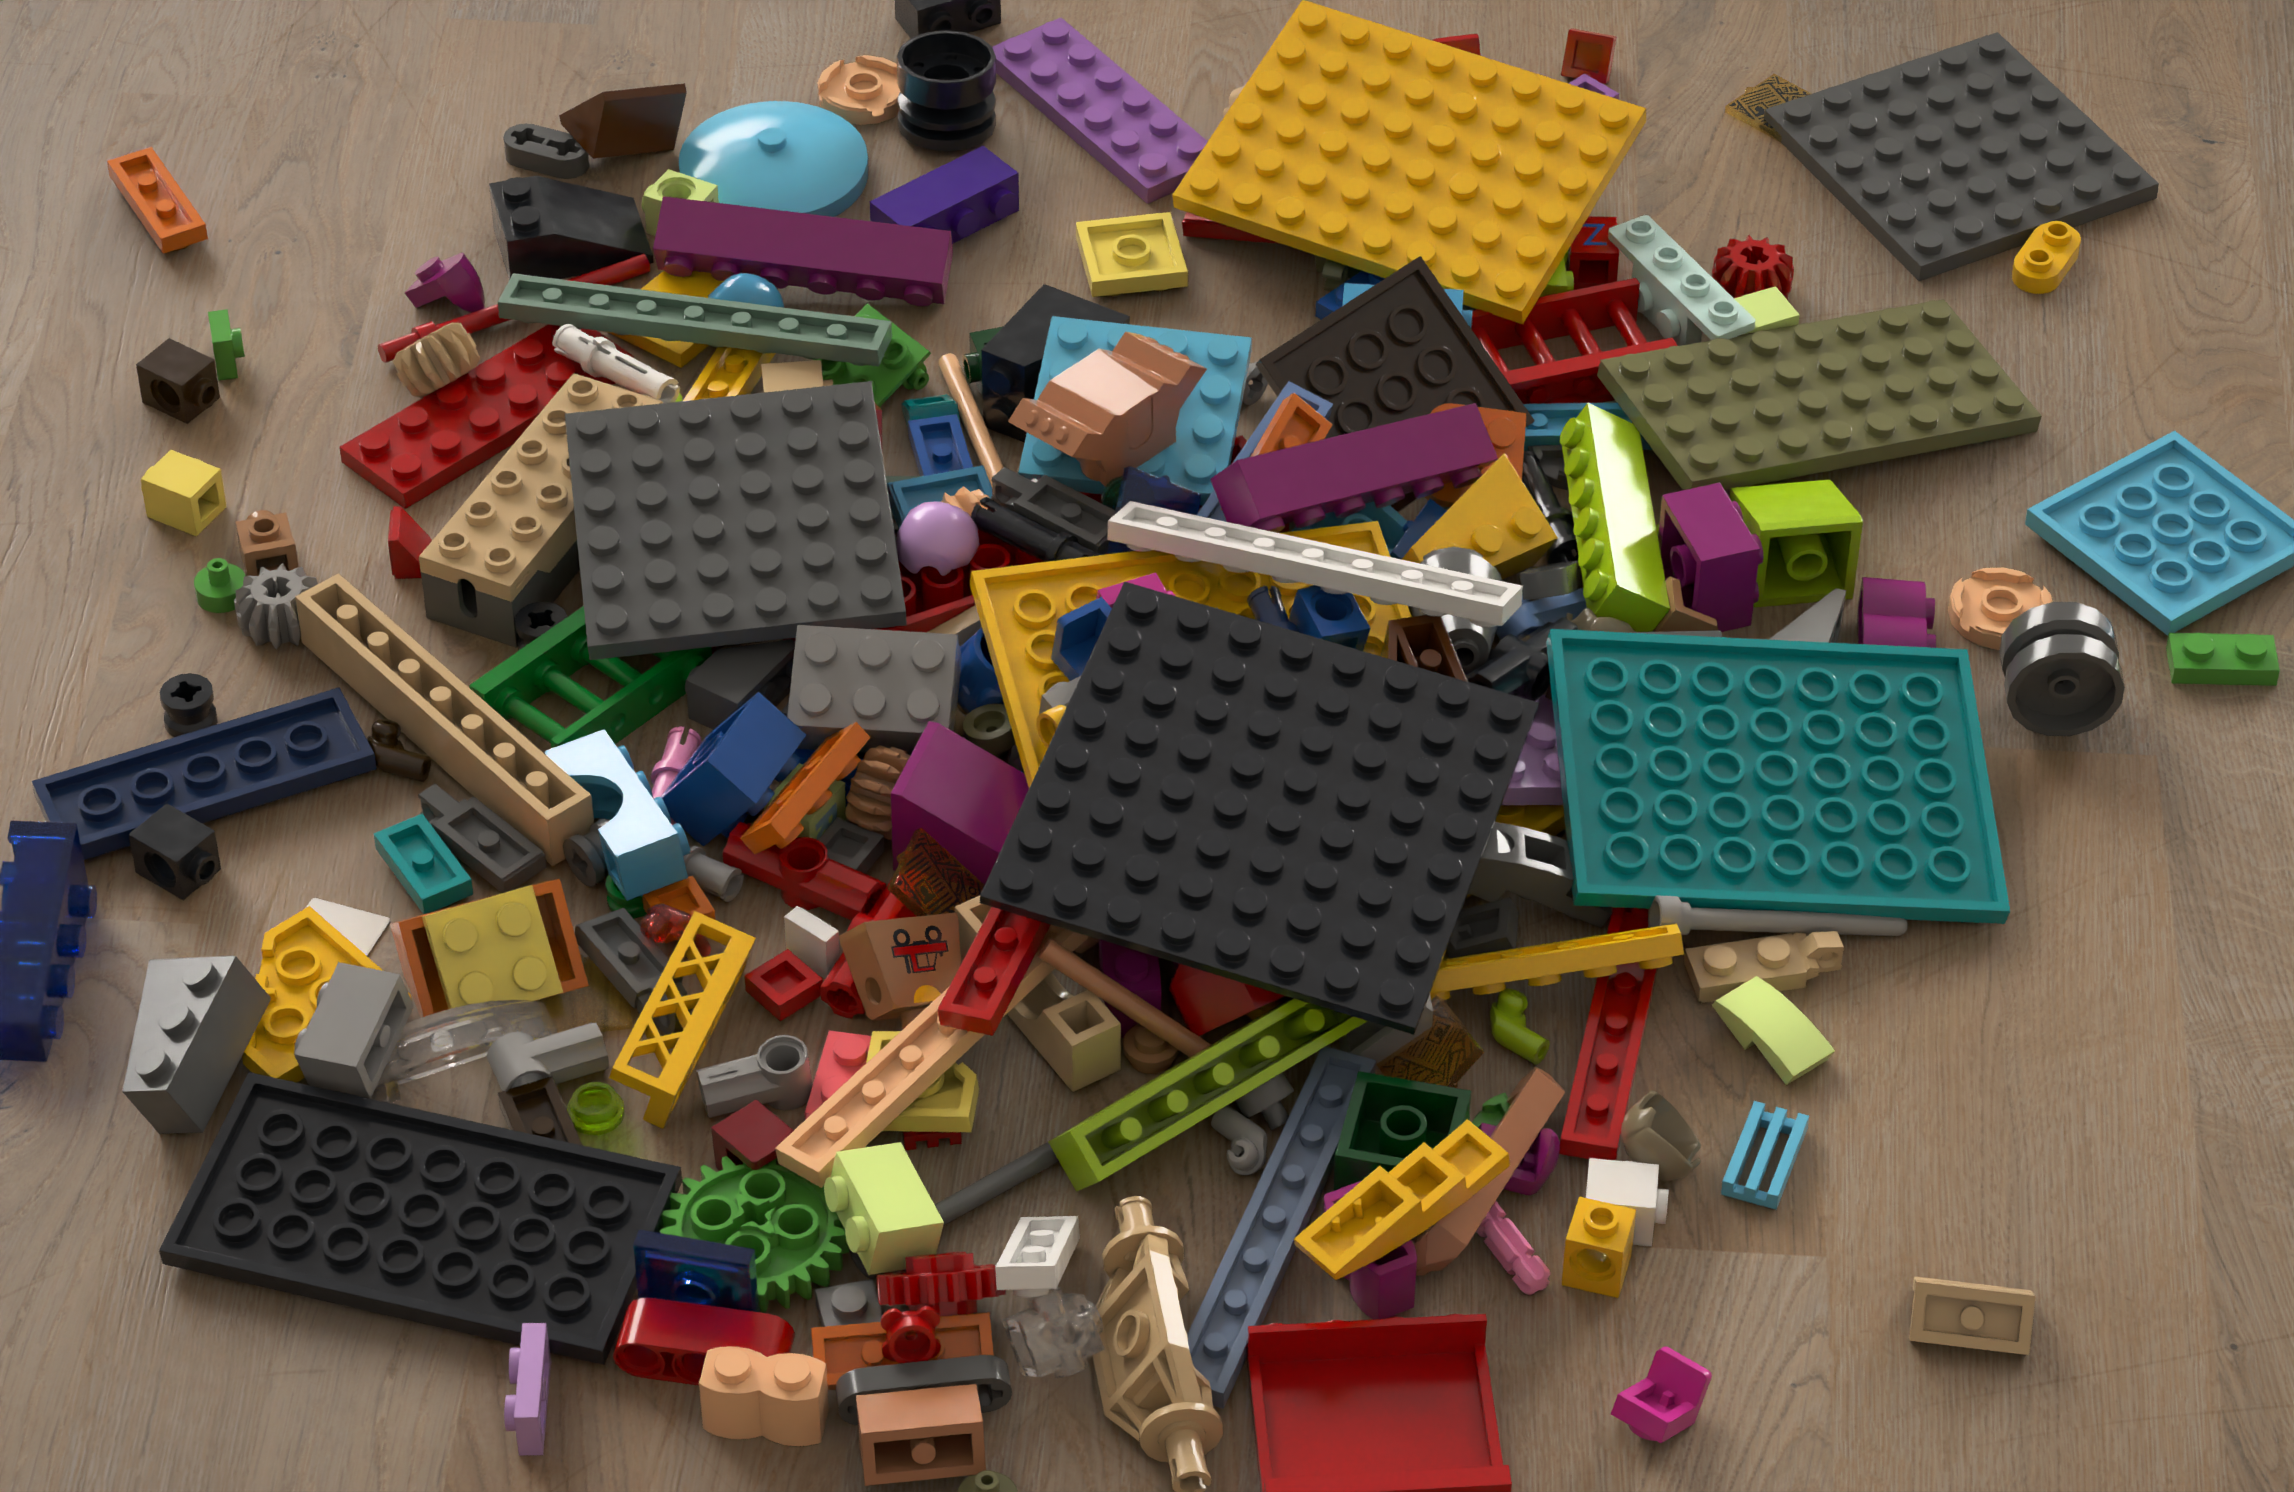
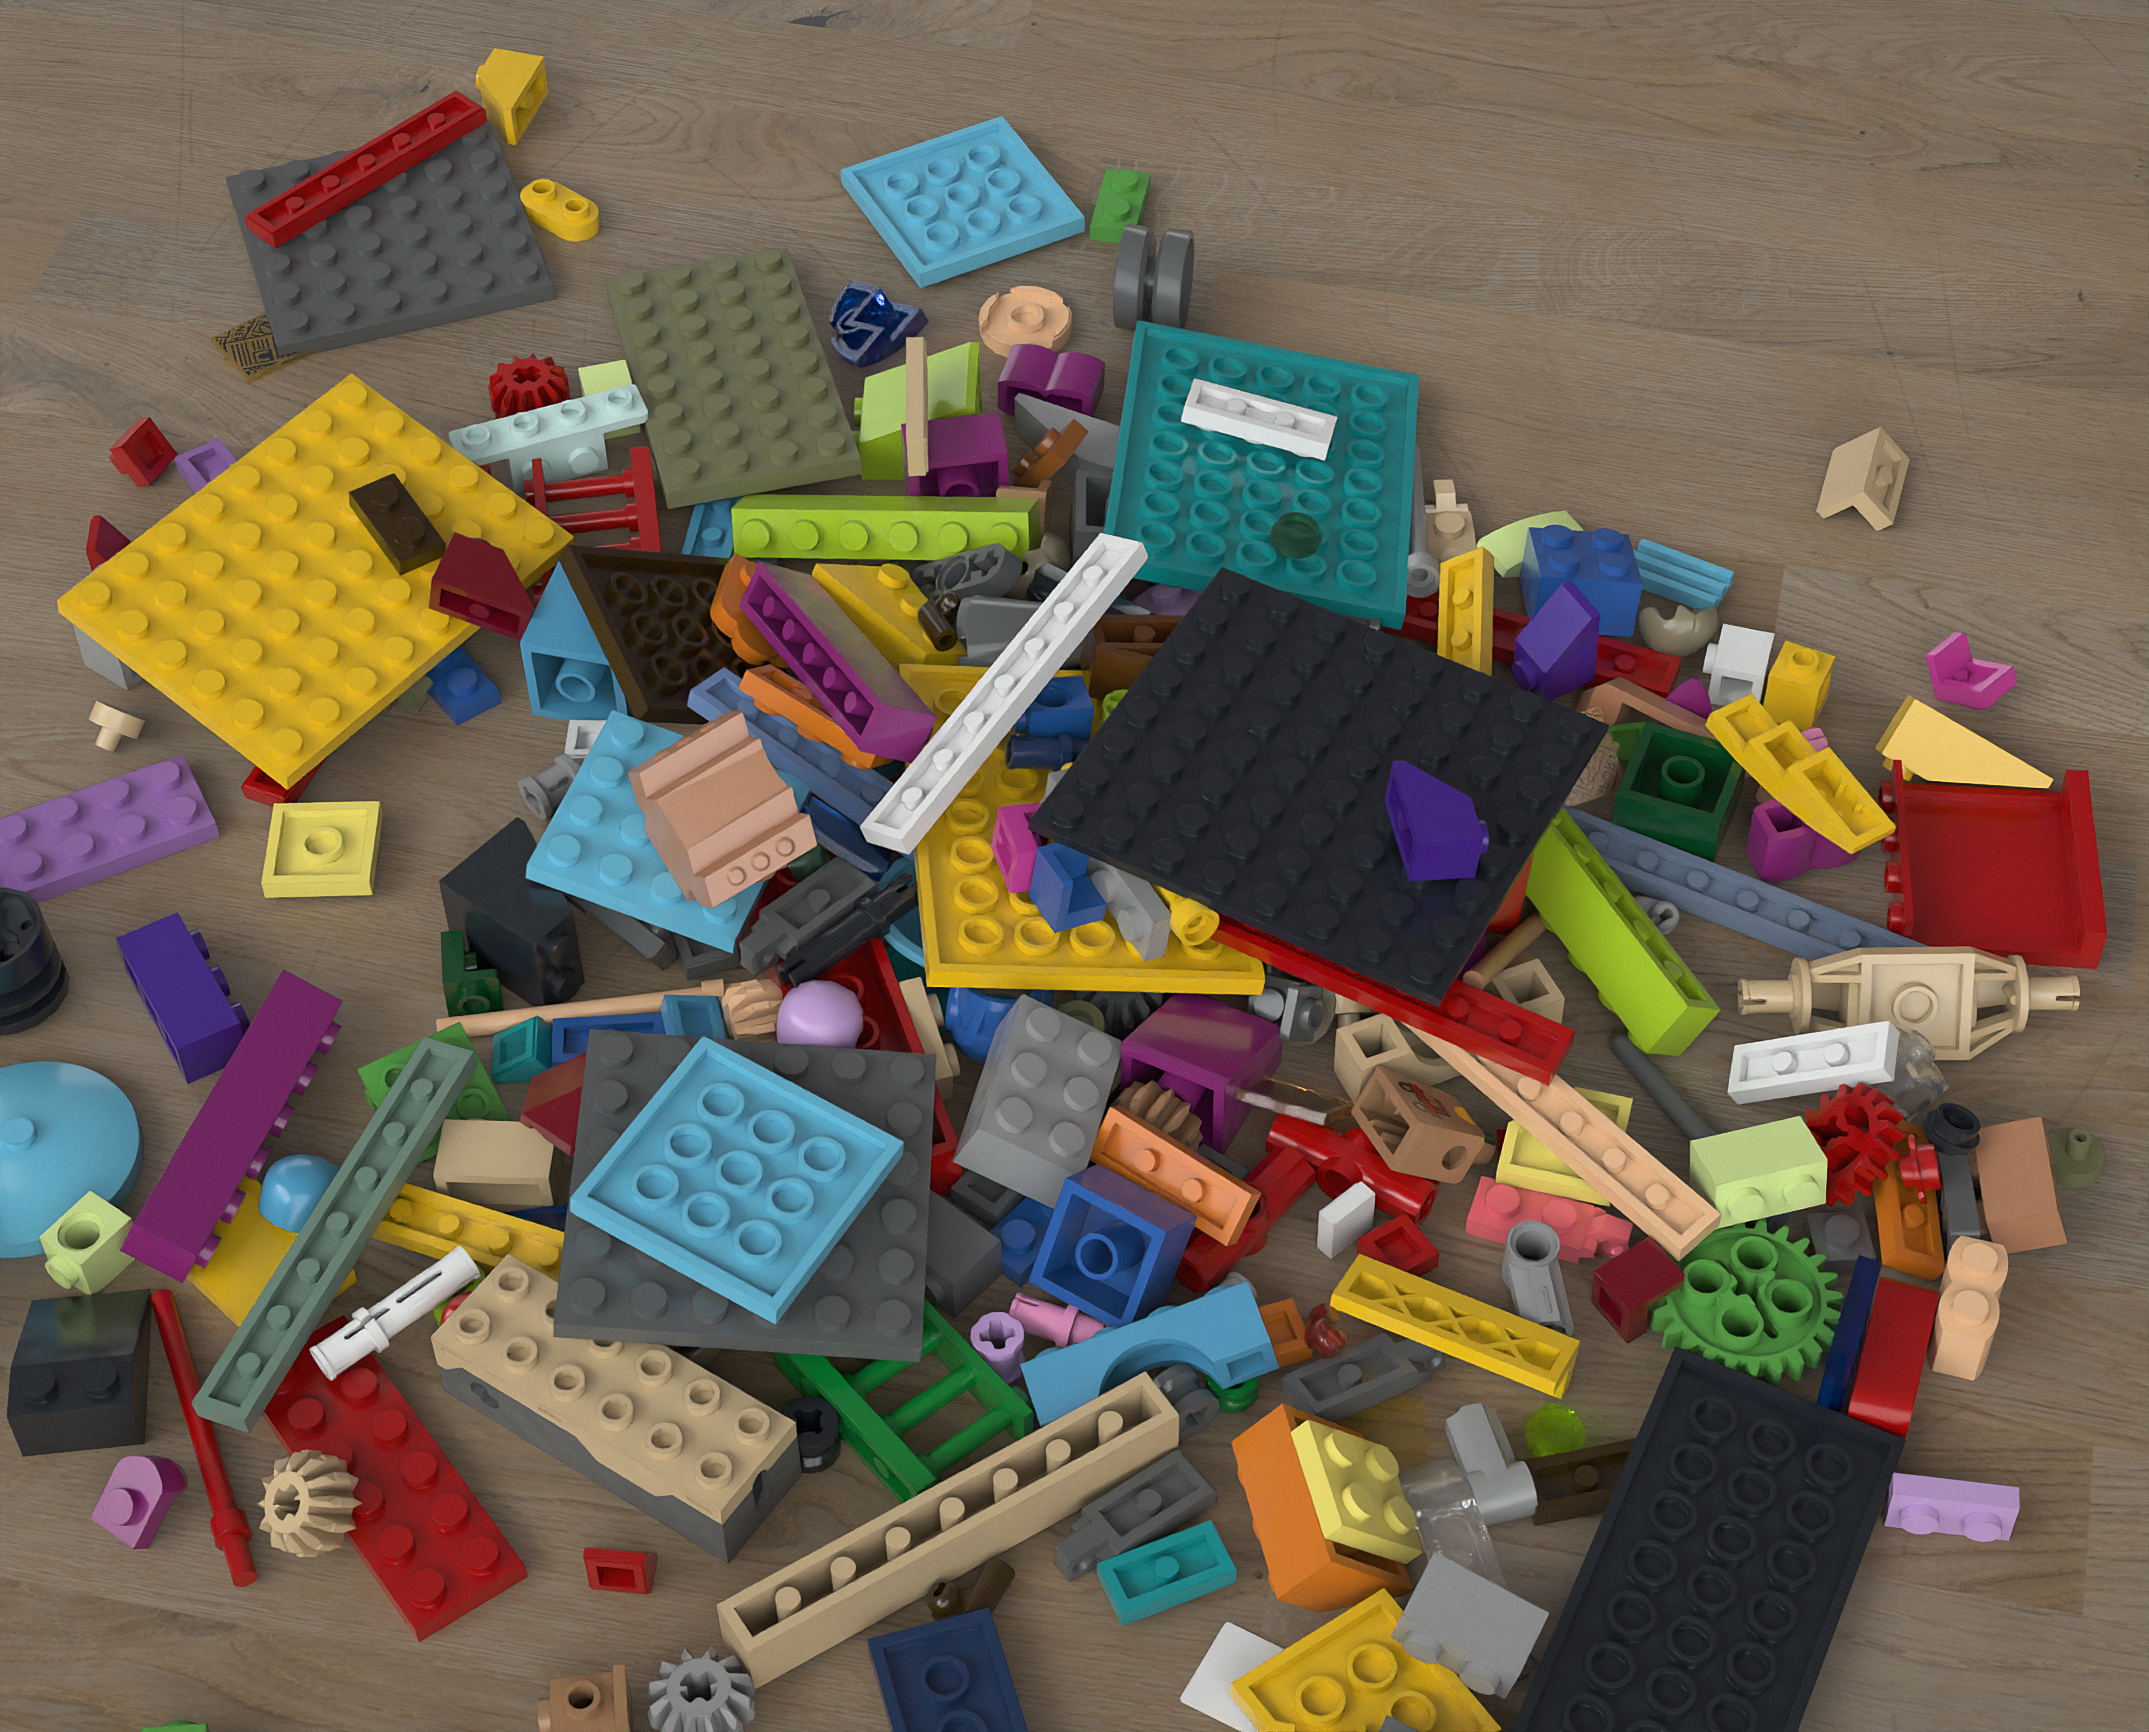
camera: 80 degrees left, 5 degrees up
(644, 730) = (999, 1342): none -> lavender bush
(714, 484) = (737, 1179): none -> medium azure plate
(960, 1337) = (1952, 1129): none -> black plate
(1177, 852) = (1433, 825): none -> dark purple slope
(1408, 231) = (480, 587): none -> dark red slope
(1443, 536) = (937, 618): none -> dark brown arm
(1466, 178) = (397, 524): none -> dark brown plate
(1526, 1380) = (1950, 752): none -> yellow slope
(1565, 1020) = (1558, 645): none -> dark purple slope
(1645, 771) = (1296, 535): none -> clear green plate
(1694, 1044) = (1596, 563): none -> blue brick
(1723, 473) = (916, 406): none -> tan tile
(1747, 617) = (1052, 453): none -> dark orange plate
(1823, 745) = (1259, 419): none -> white plate
(1947, 497) = (871, 325): none -> clear blue brick
(2032, 108) = (365, 169): none -> red tile
(2201, 188) = (512, 90): none -> yellow slope

